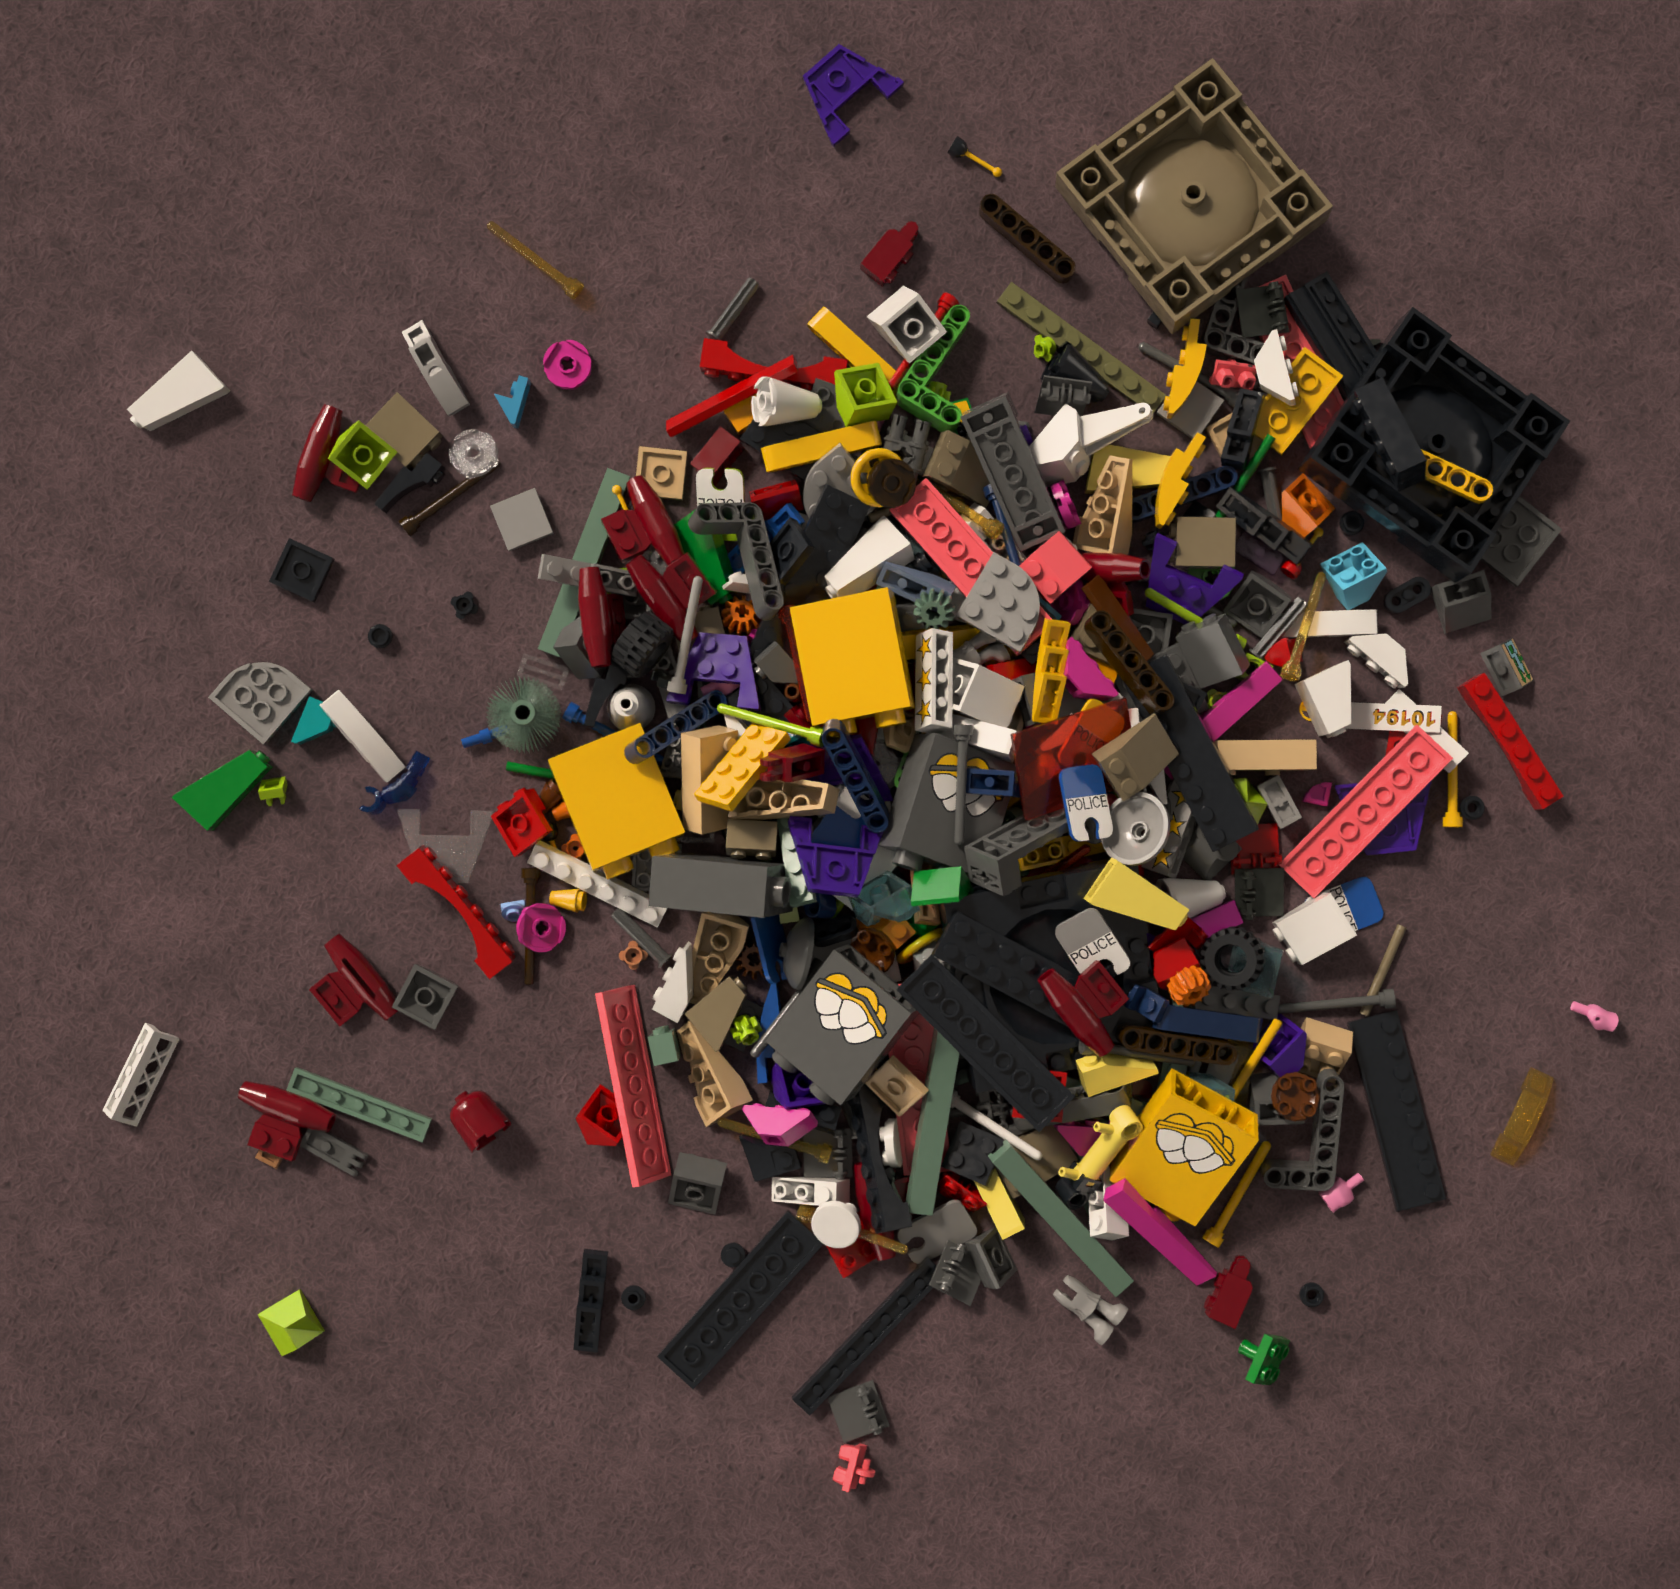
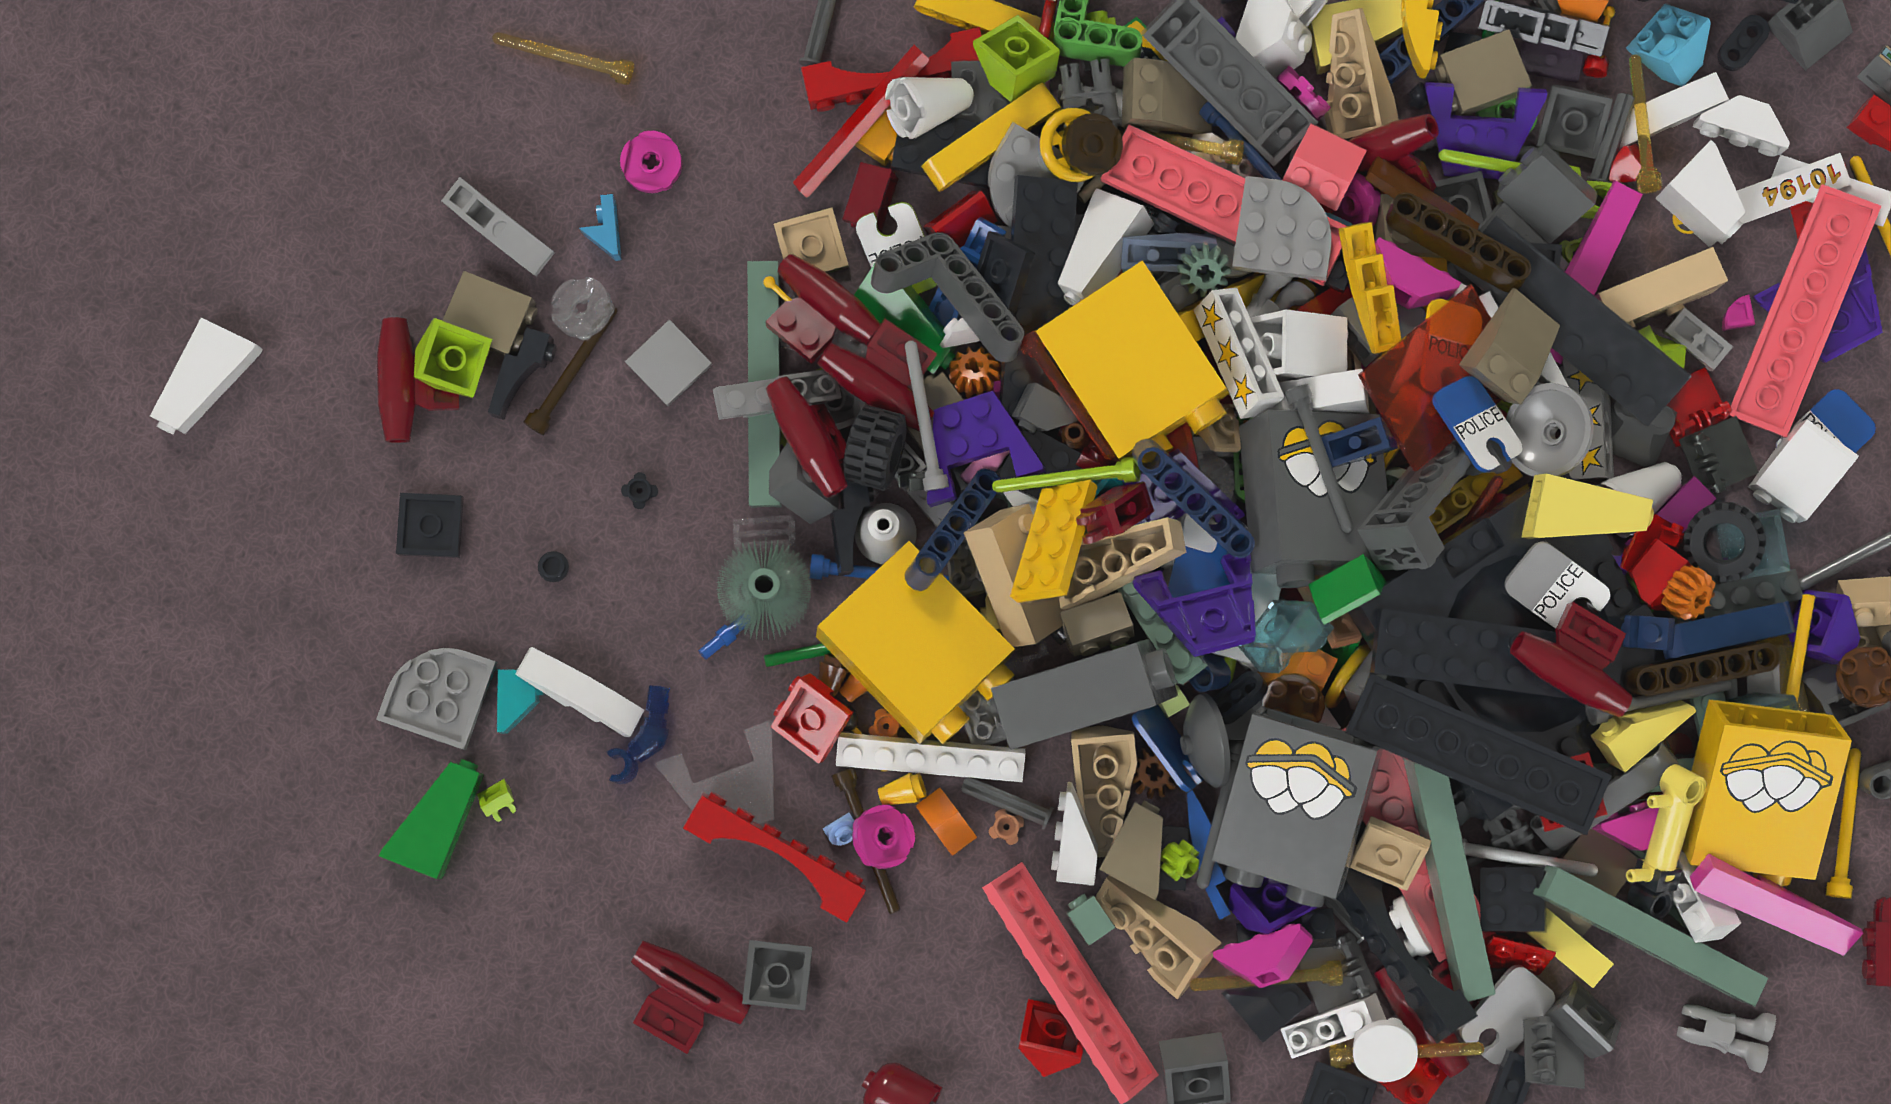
camera: 15 degrees left, 5 degrees down
(591, 934) = (946, 821): none -> orange slope

